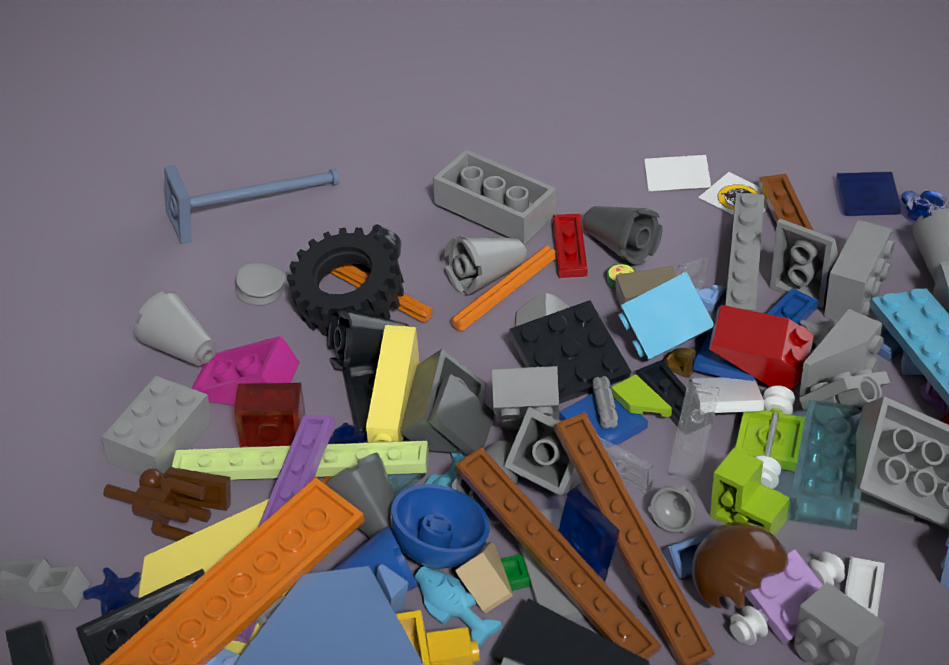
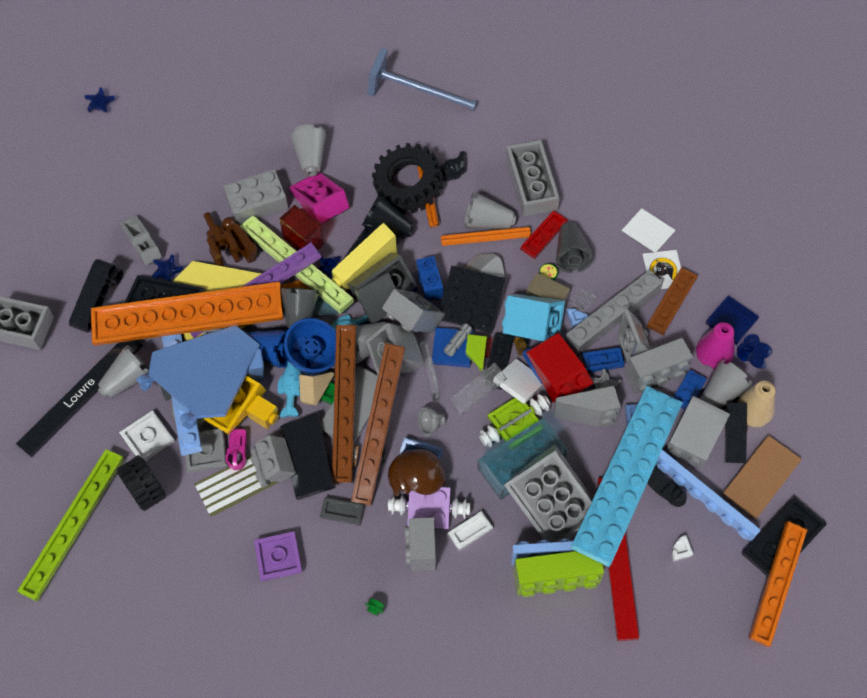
camera: 40 degrees right, 20 degrees up
(259, 283) = (375, 145): light grey piece -> none
(483, 355) = (429, 278): none -> blue brick
(589, 532) = (364, 405): clear blue tile -> none
(742, 497) = (462, 442): lime brick -> none
(848, 389) = (568, 430): light grey plate -> none
(893, 208) = (716, 345): none -> dark pink cone
(907, 275) = (689, 387): none -> blue plate

